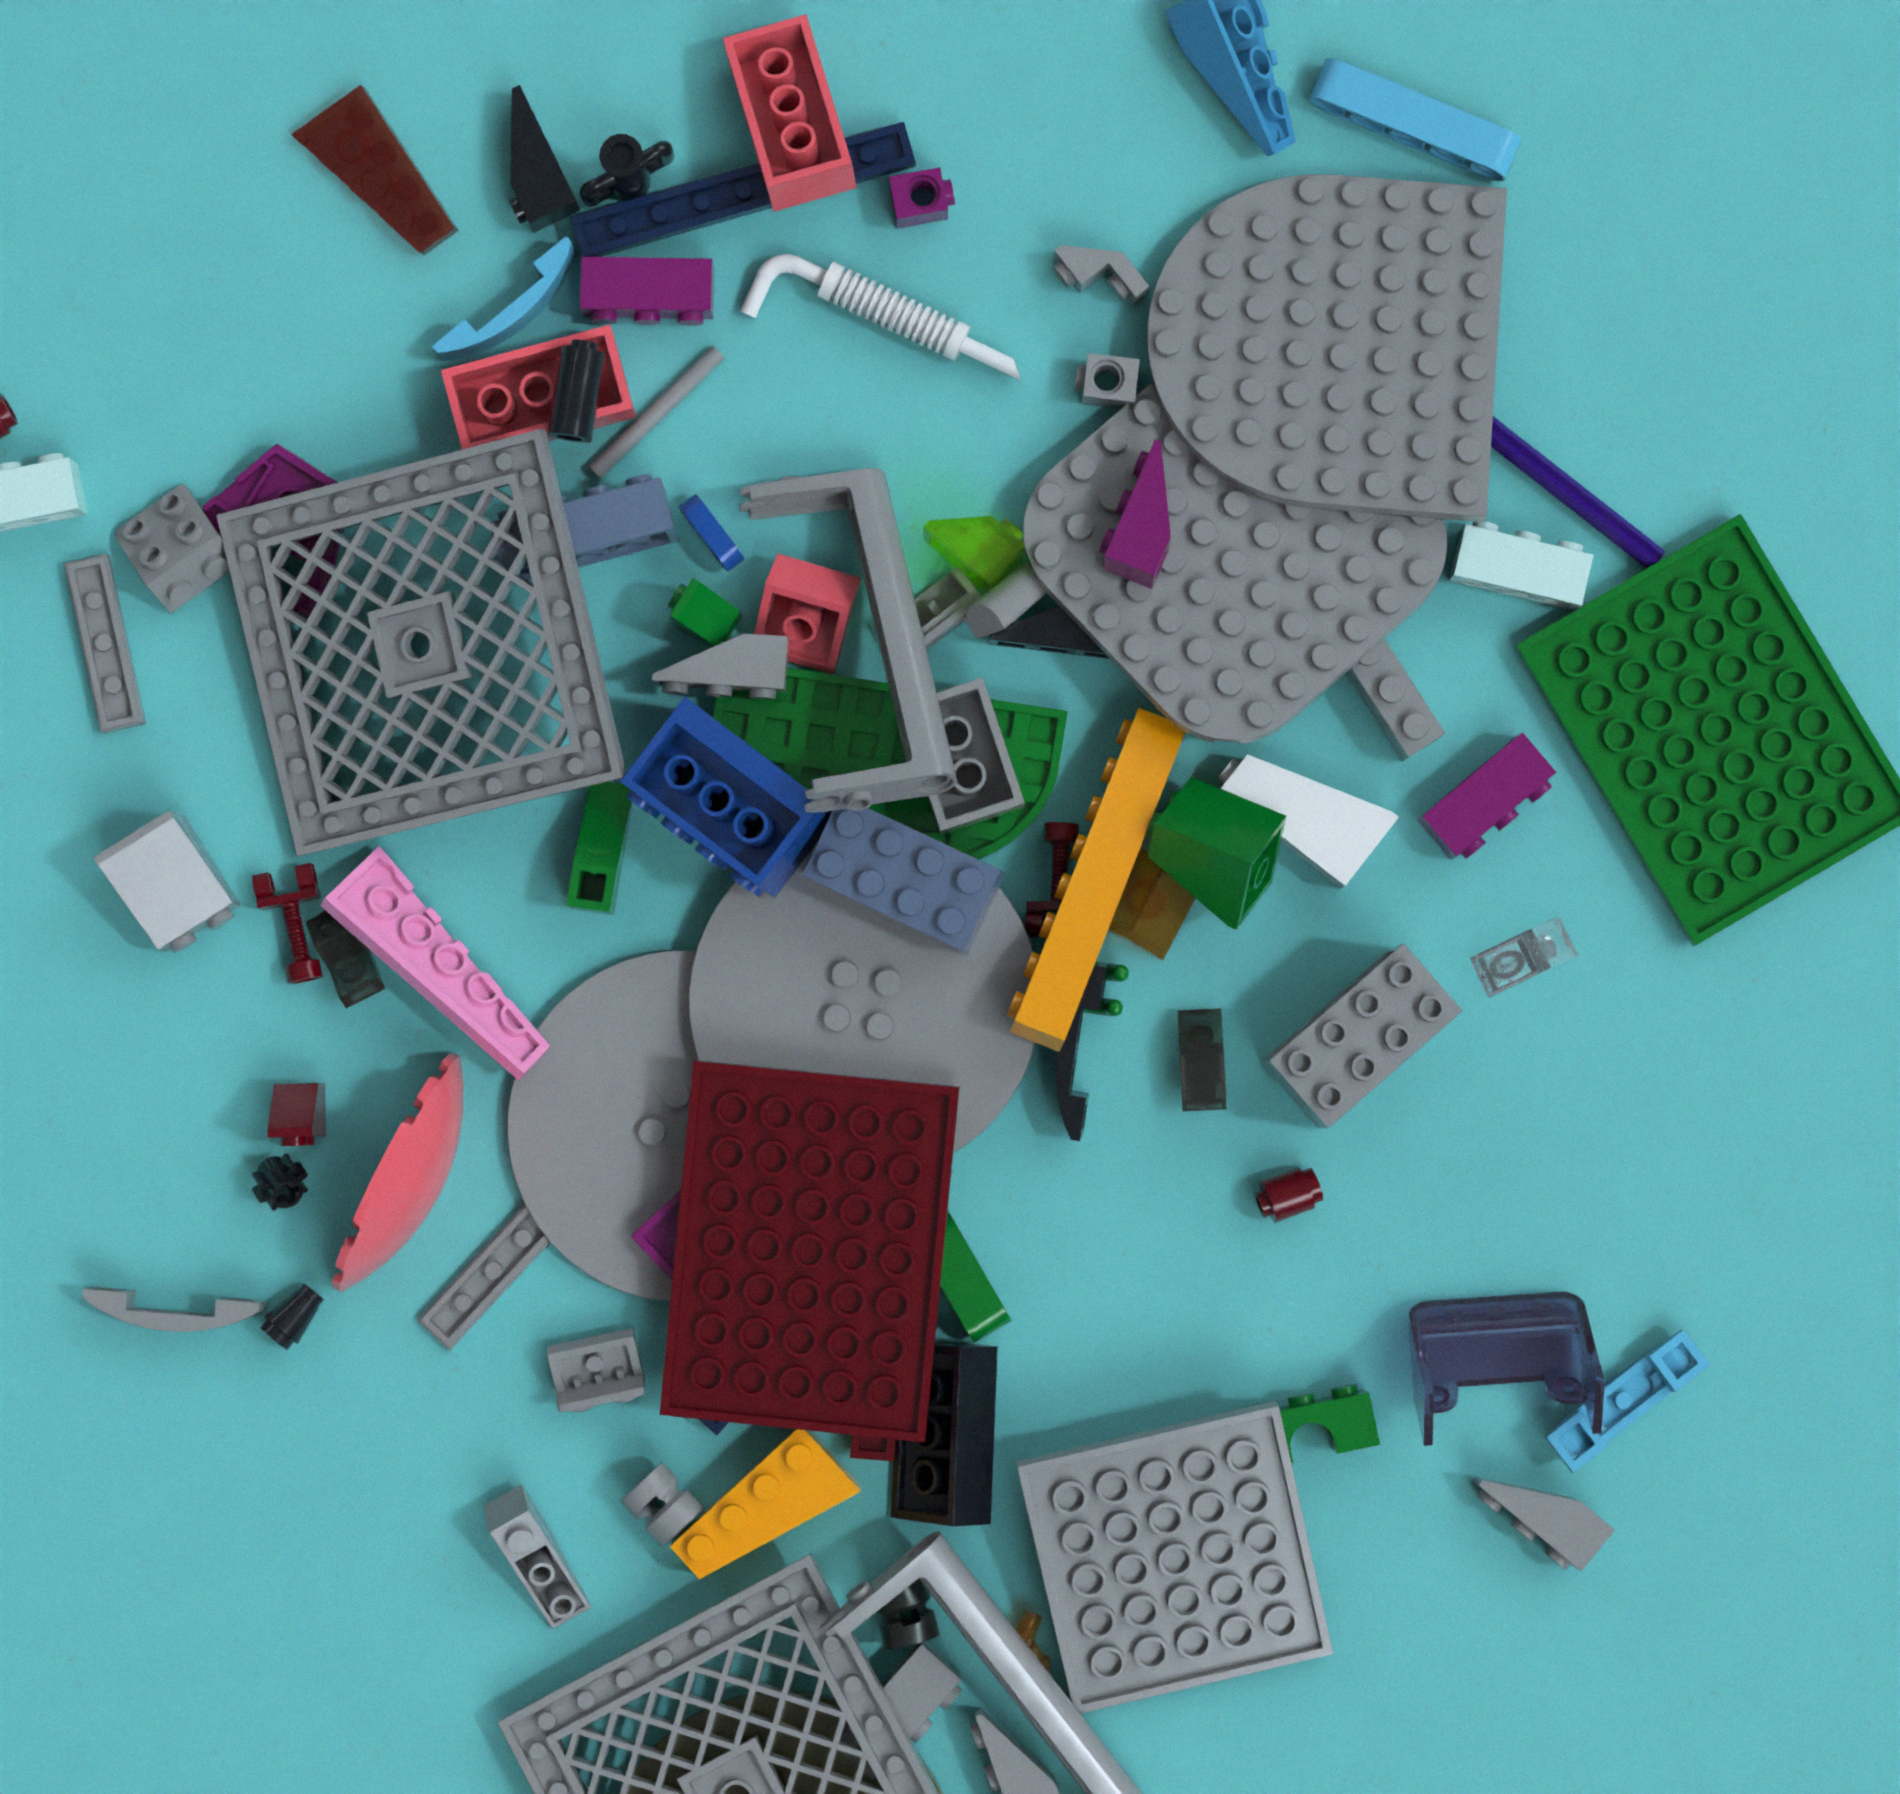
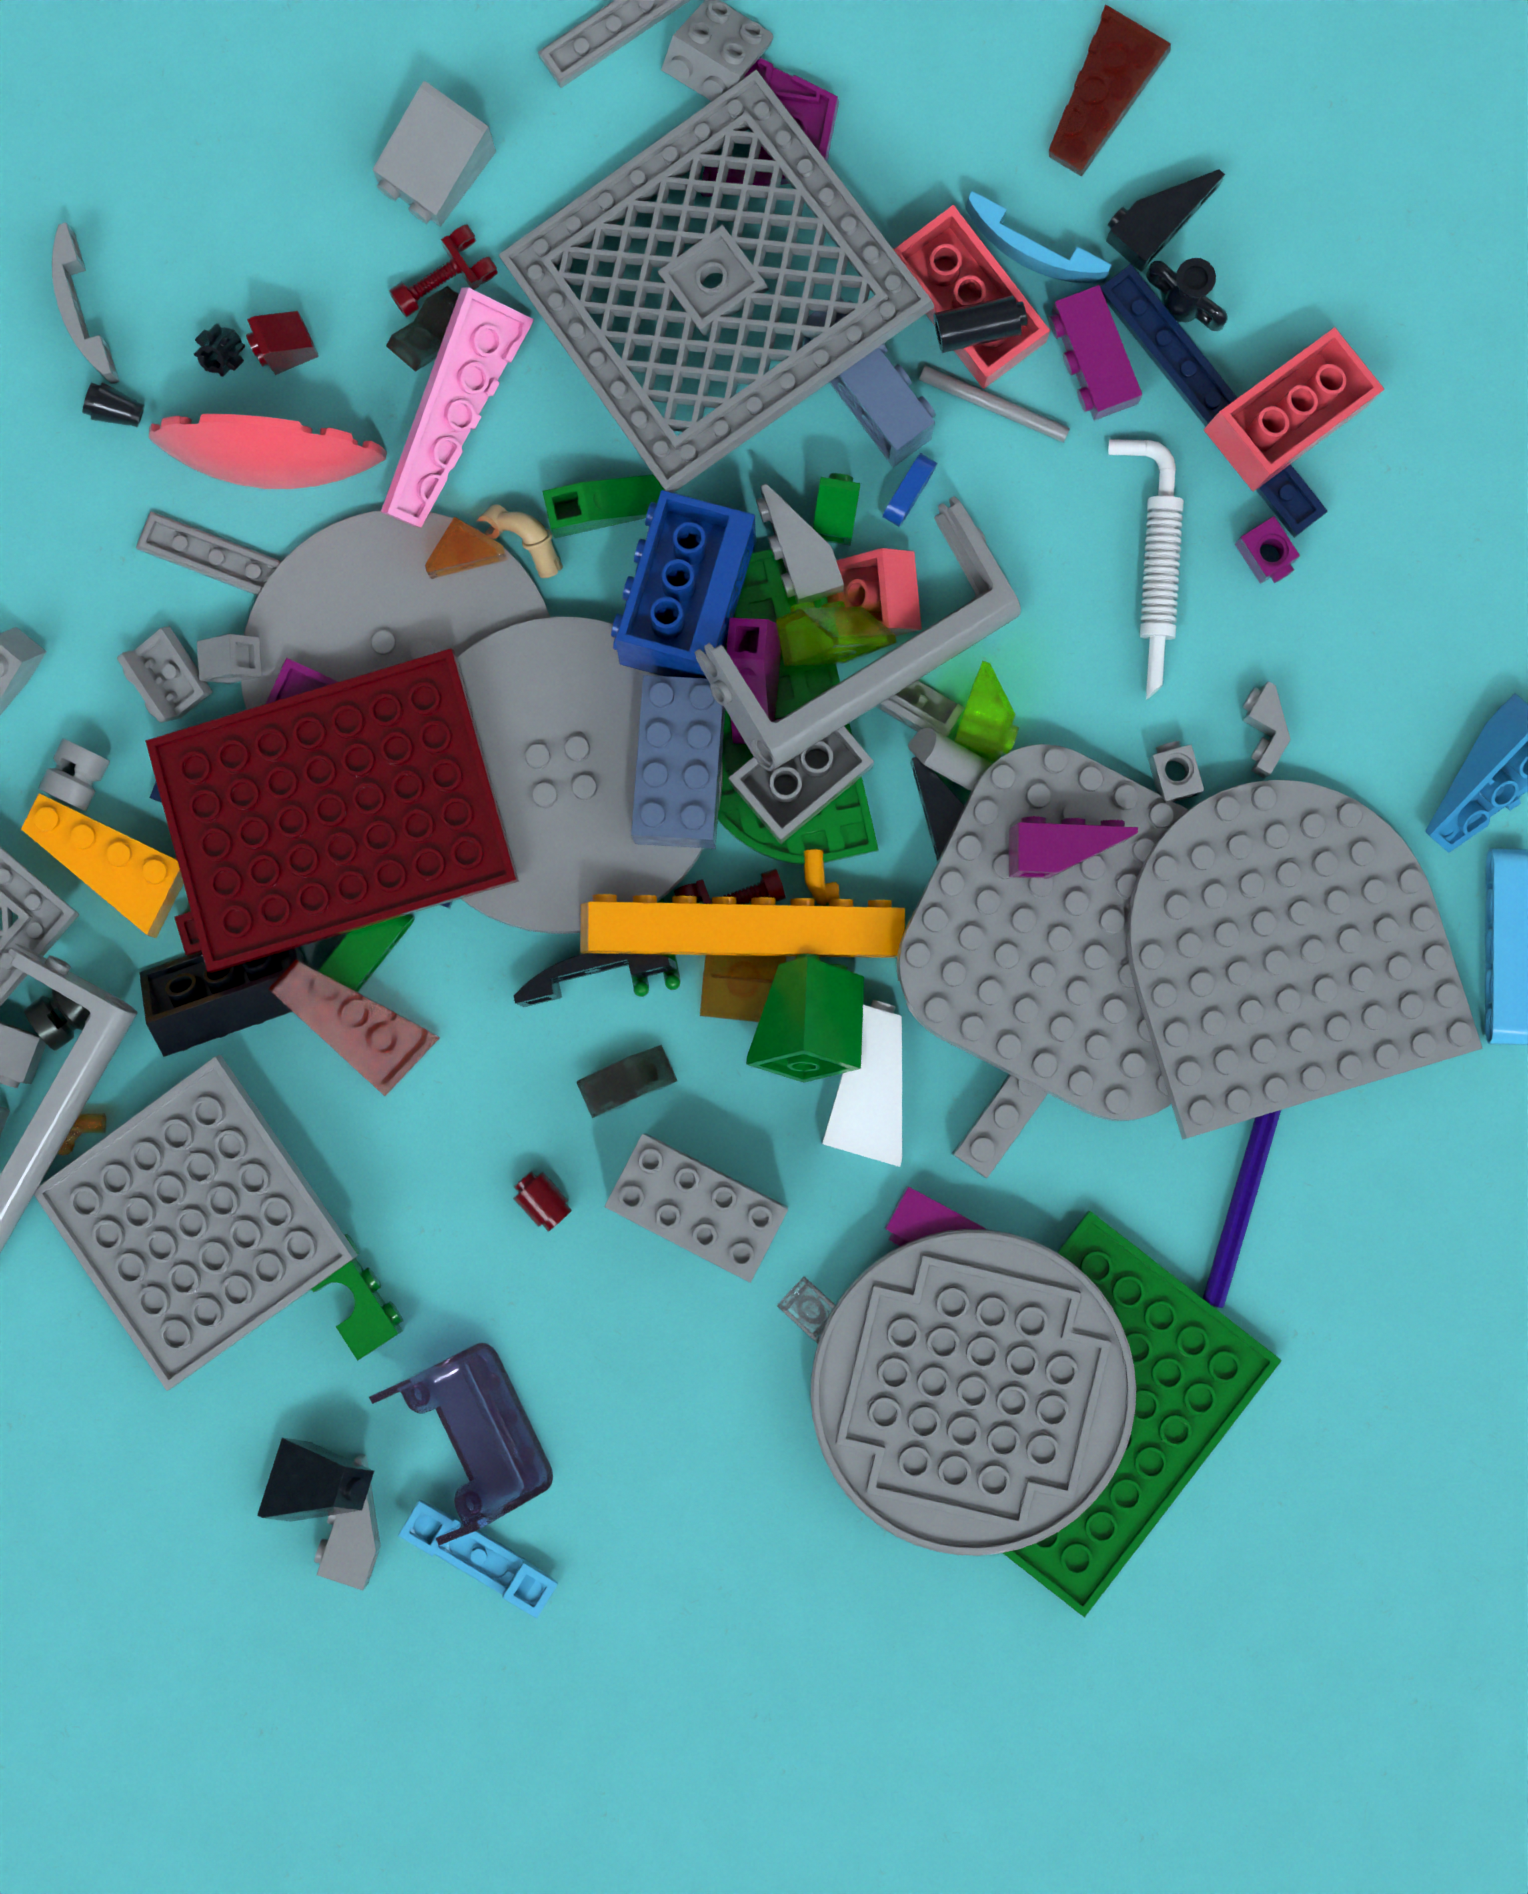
camera: 75 degrees right, 0 degrees up
(591, 1011) = (463, 550): none -> clear orange slope
(602, 933) = (534, 535): none -> tan piece
(606, 1296) = (229, 658): none -> light grey brick
(820, 753) = (757, 655): none -> magenta slope
(831, 670) = (830, 634): none -> clear neon green slope
(1042, 1311) = (356, 1027): none -> clear red wing
(1072, 787) = (815, 878): none -> light orange arm
(1487, 1538) = (313, 1483): none -> black slope
(1521, 565) = (1160, 1189): light aqua brick -> none
(1653, 834) = (973, 1392): none -> light grey plate

